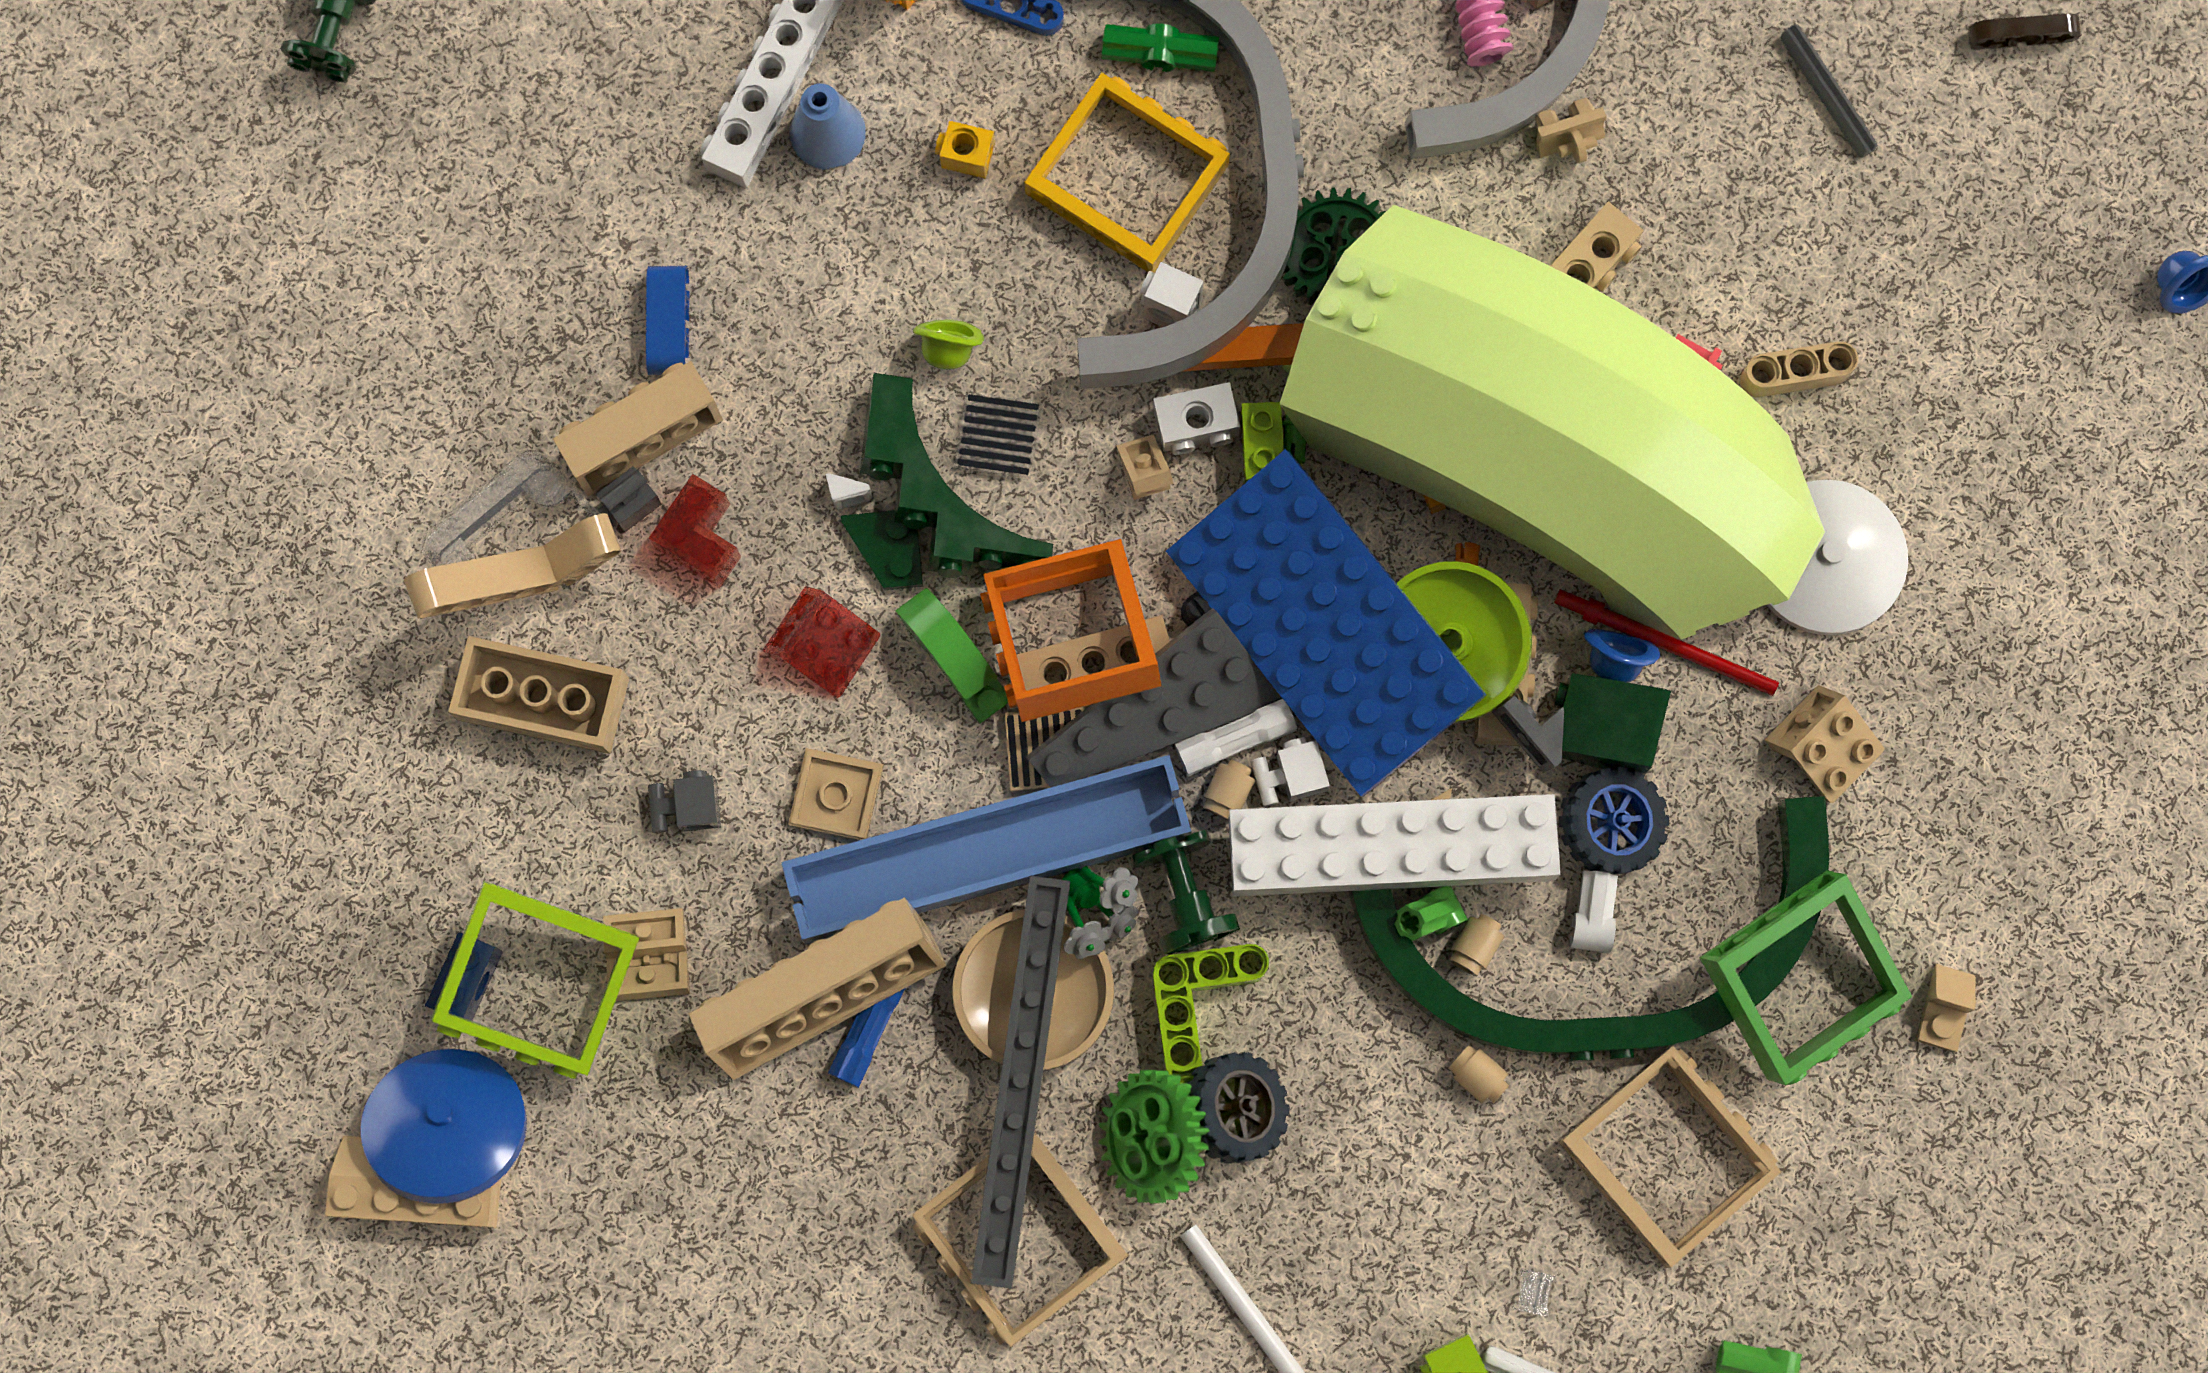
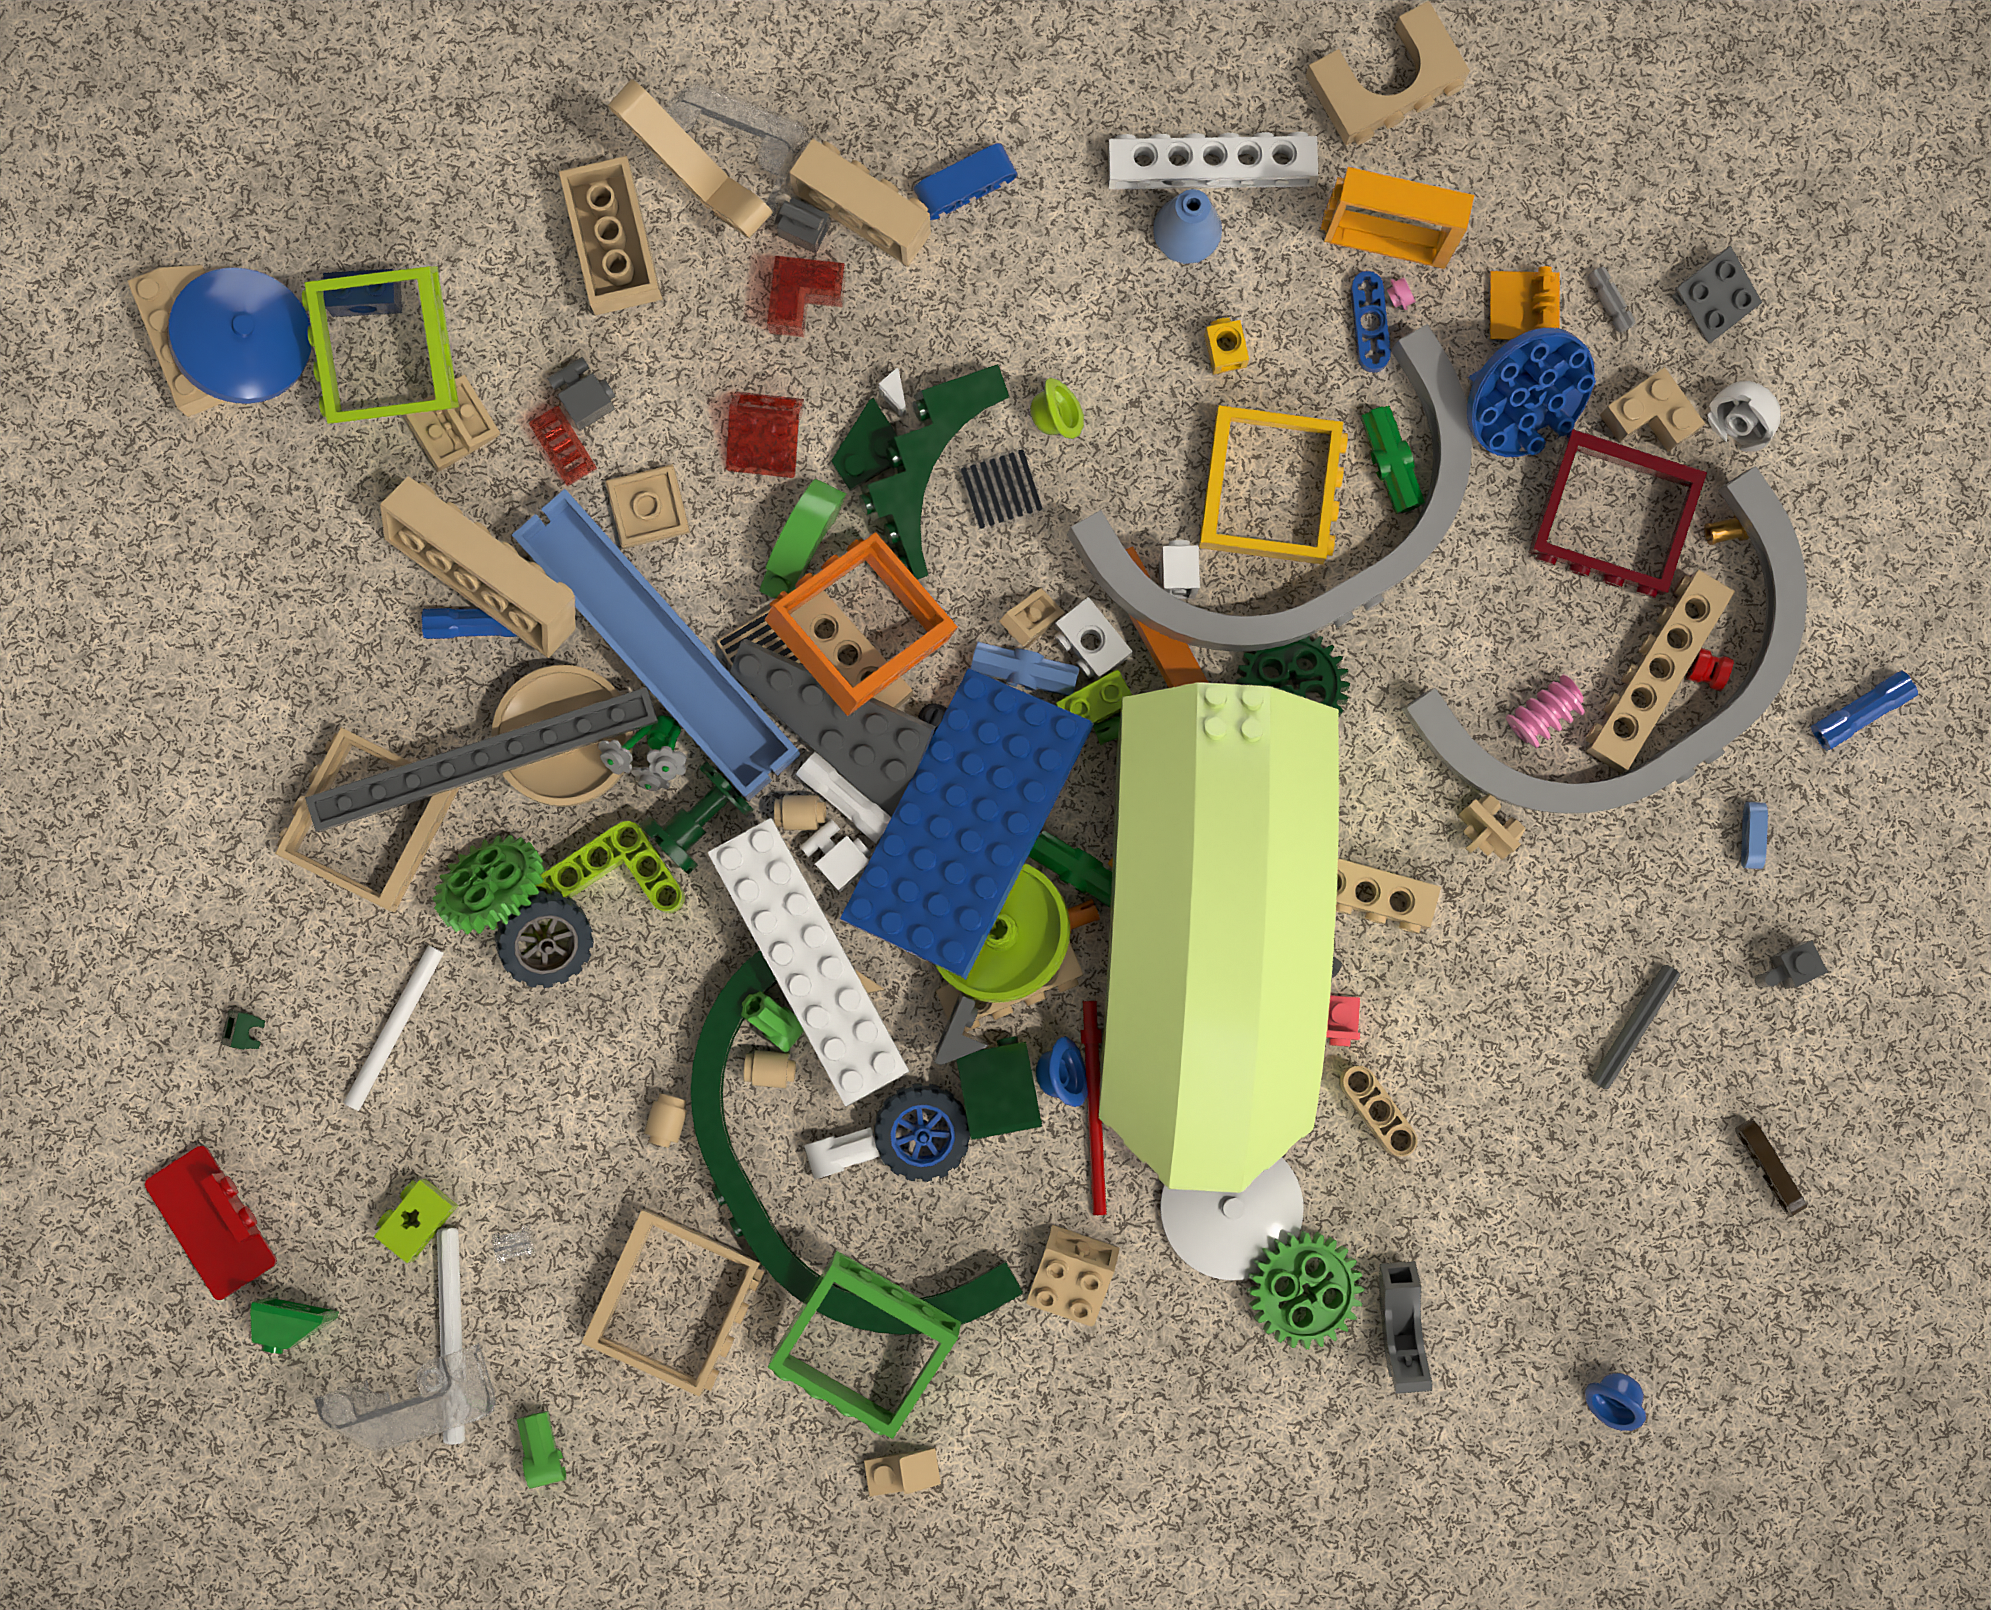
camera: 60 degrees right, 5 degrees up
(696, 863) = (549, 418): none -> clear red slope
(1193, 497) = (1025, 668): none -> medium blue piece
(1424, 539) = (1073, 867): none -> green piece
(1944, 523) = (1290, 1261): none -> bright green gear
(2033, 453) = (1403, 1328): none -> dark grey arch

